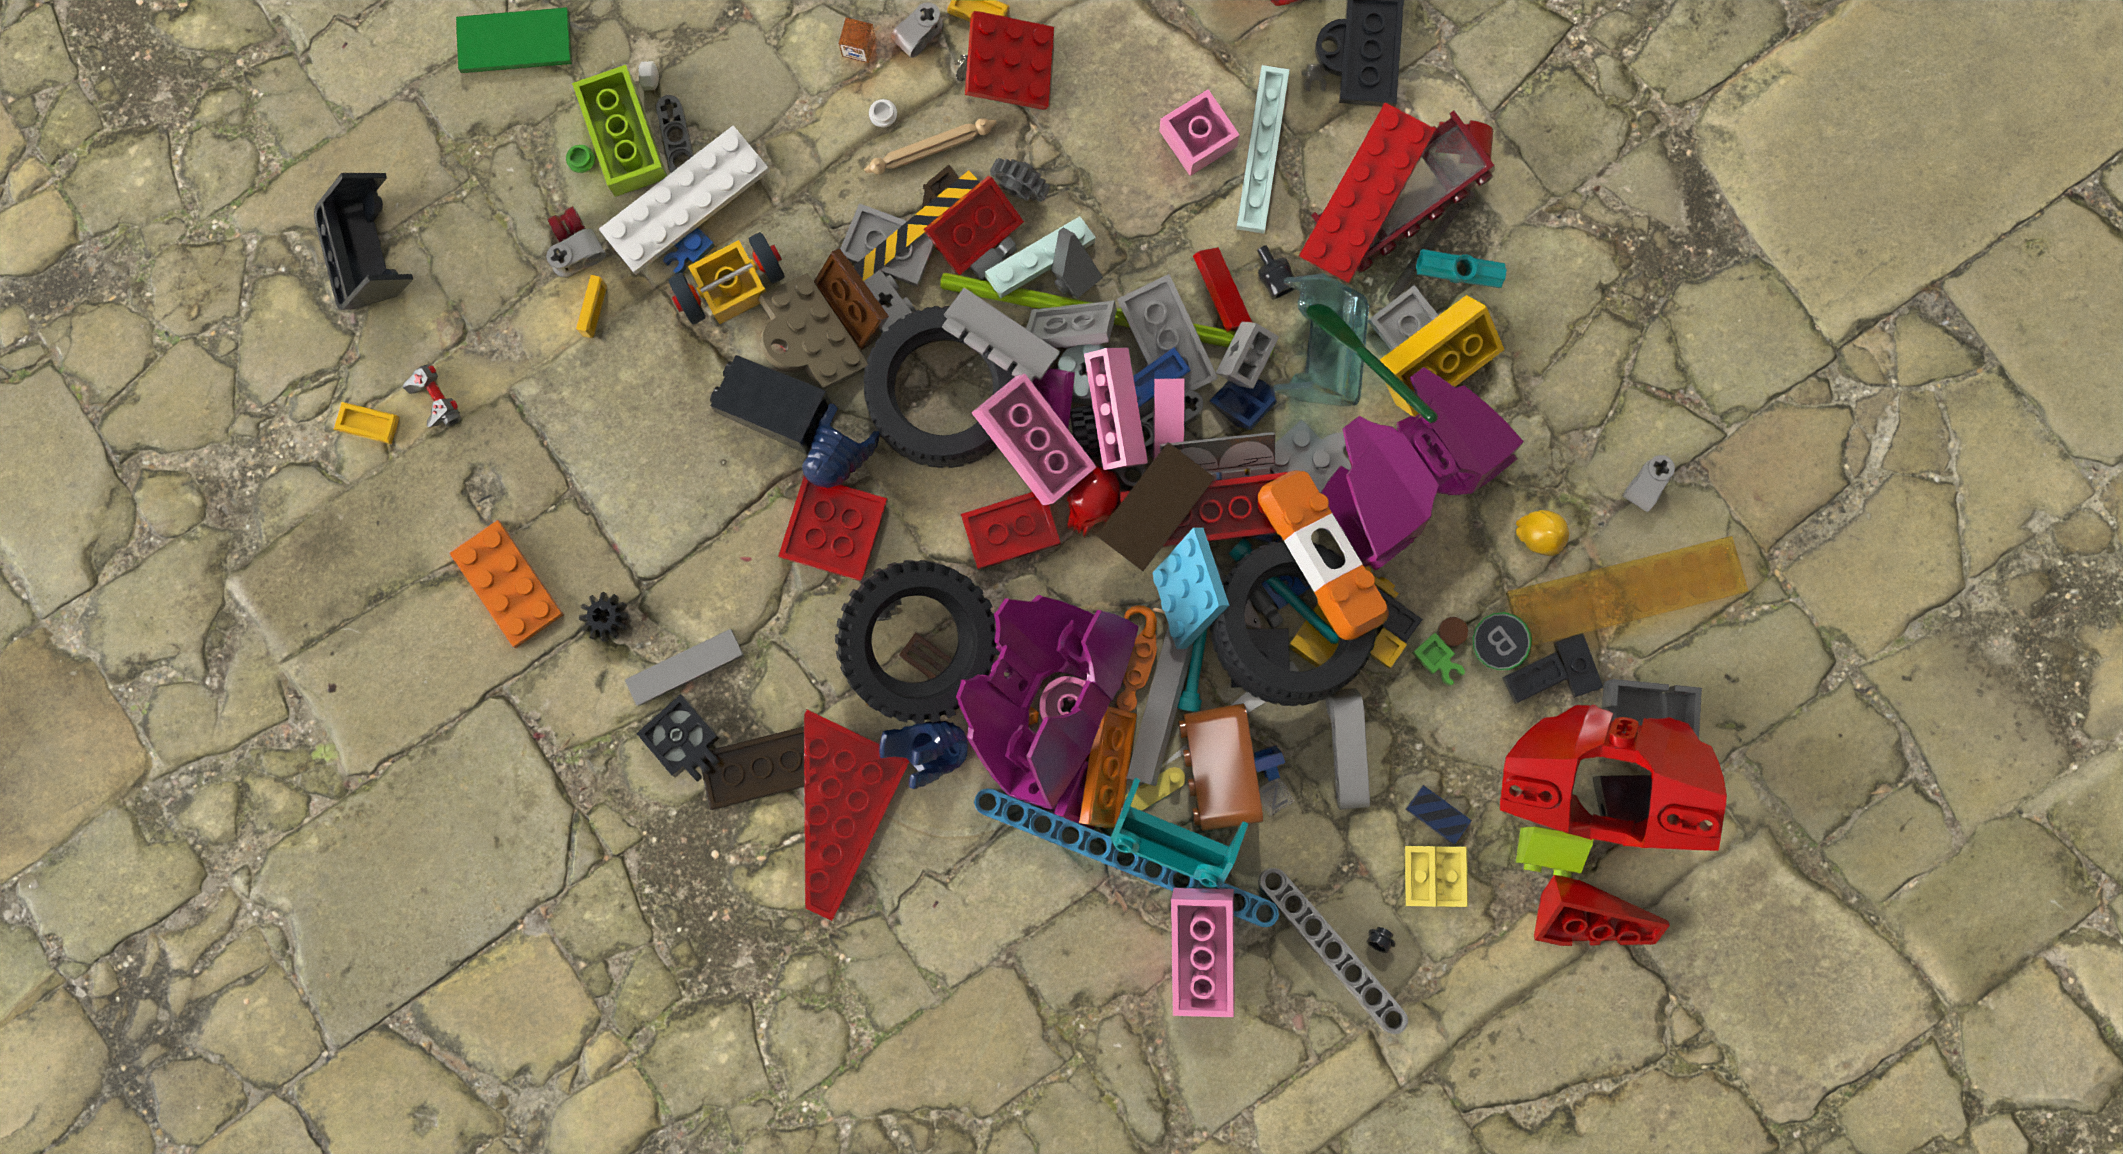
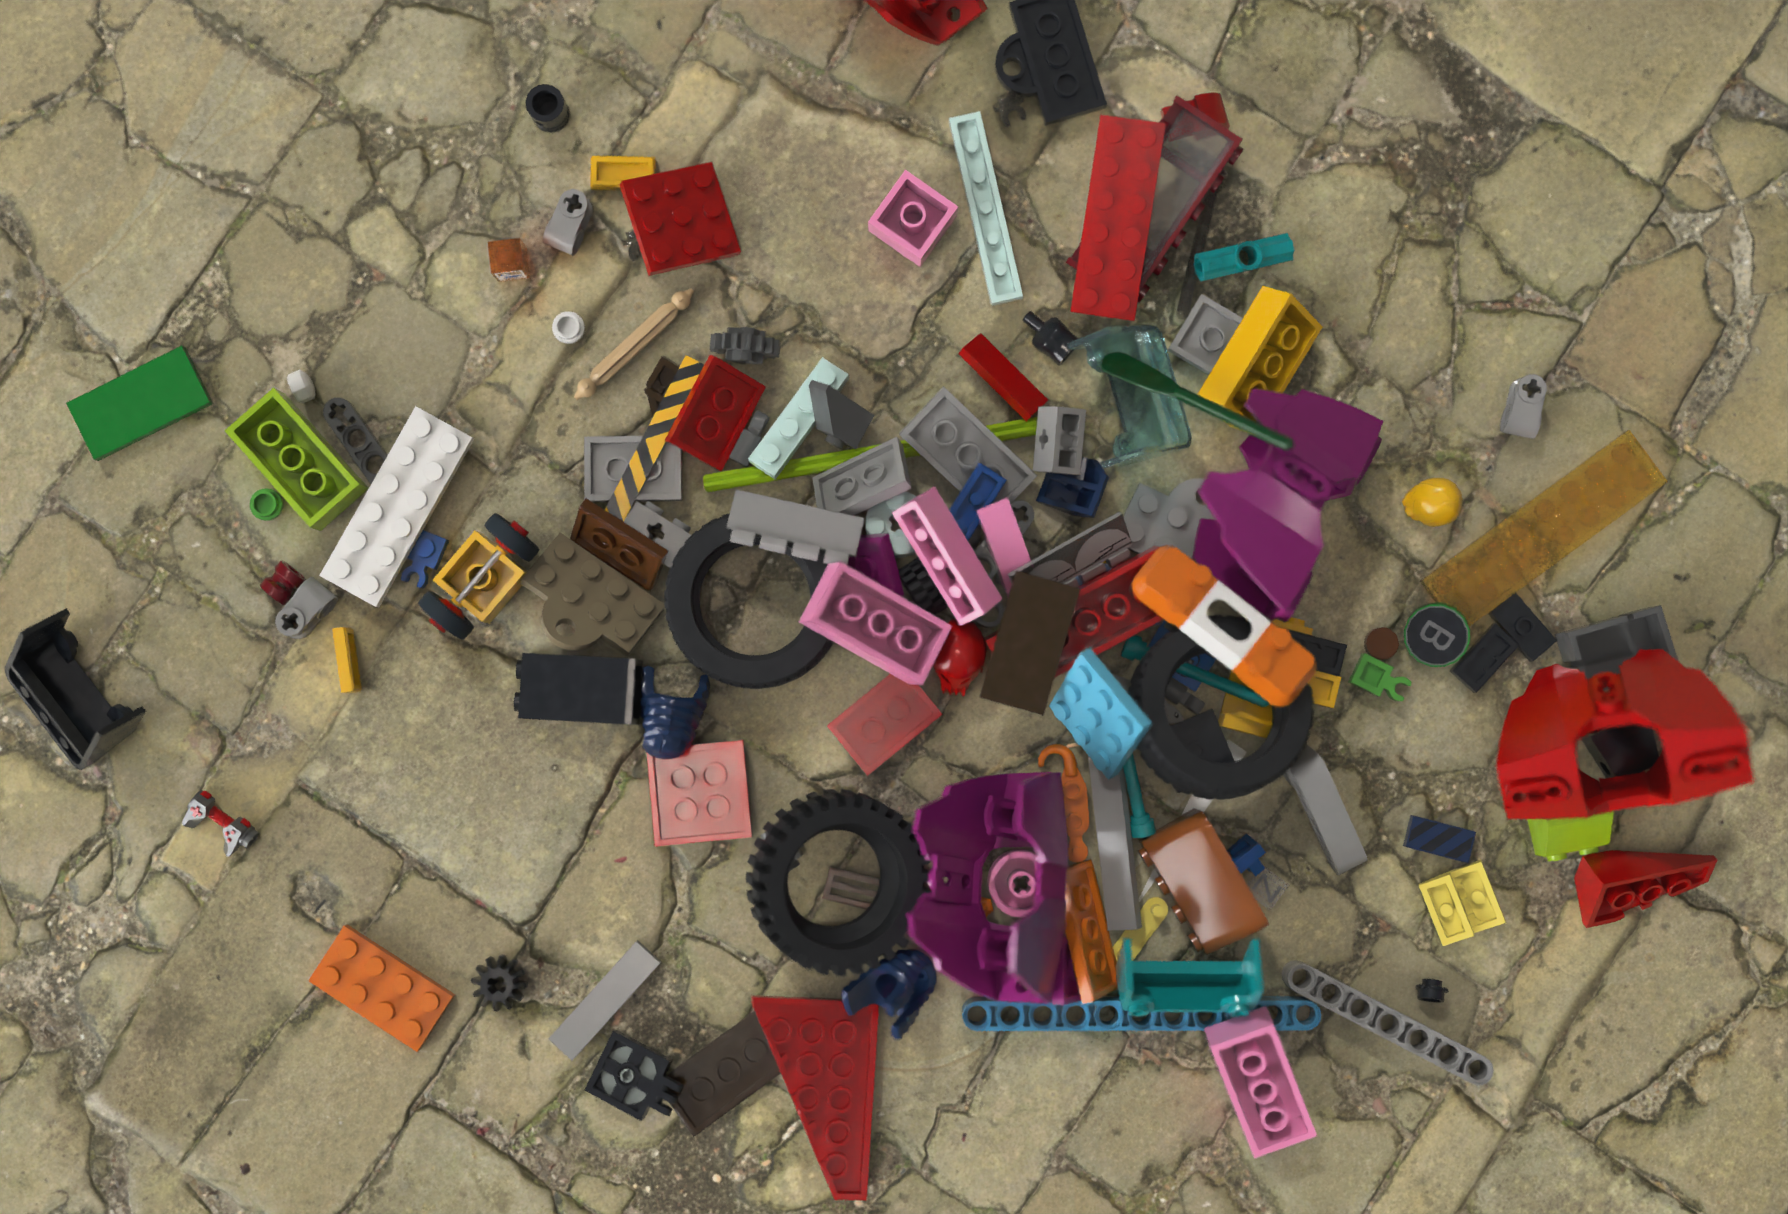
camera: 25 degrees left, 5 degrees up
(366, 423) = (160, 877): yellow tile -> none

